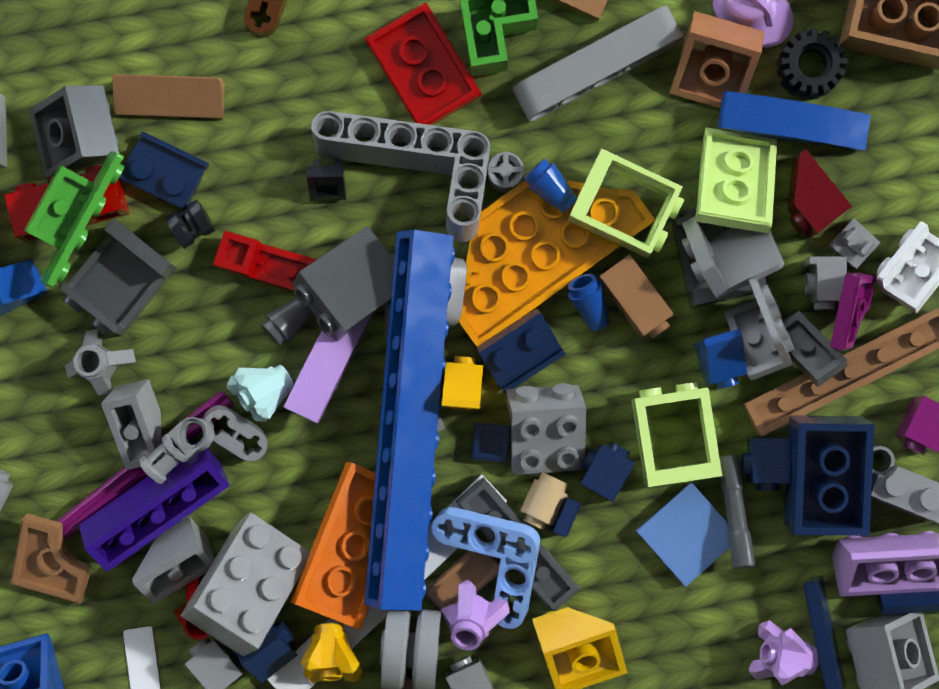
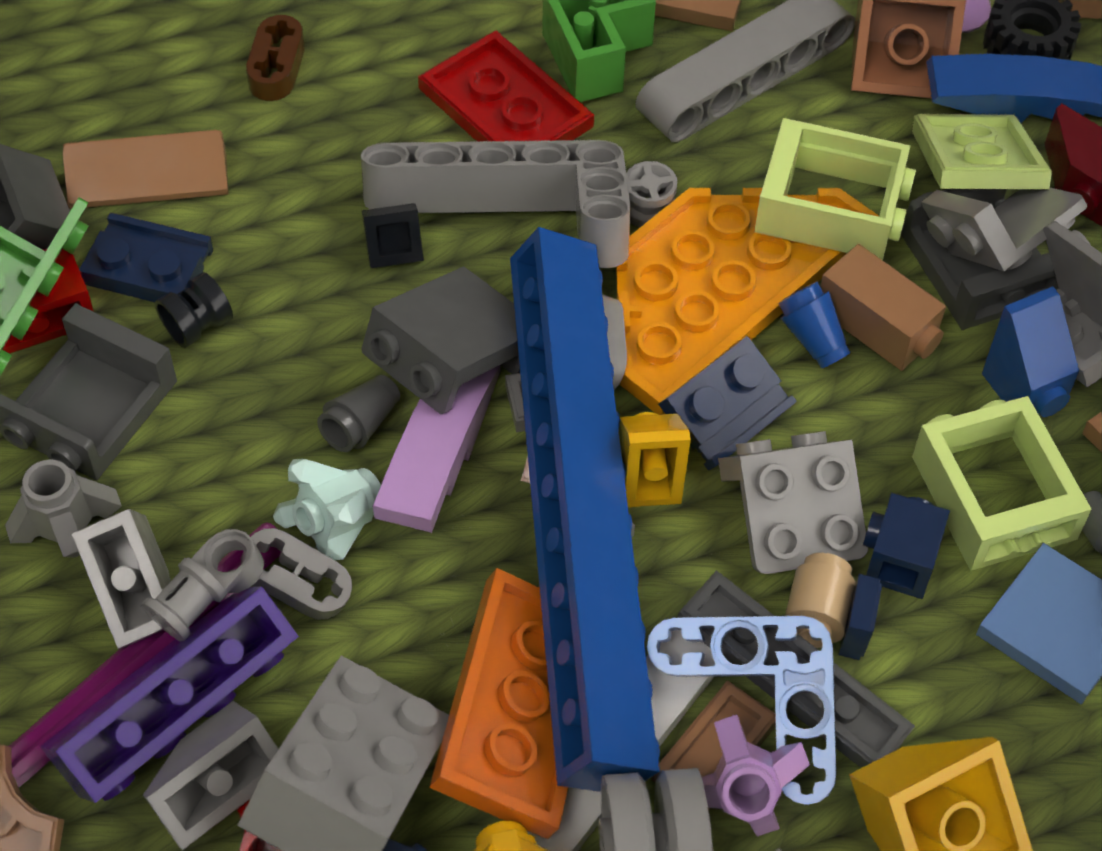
camera: 15 degrees left, 30 degrees down
(259, 261) = (315, 353): red slope -> none
(490, 442) = (711, 539): dark blue tile -> none
(550, 185) = (720, 184): blue cone -> none

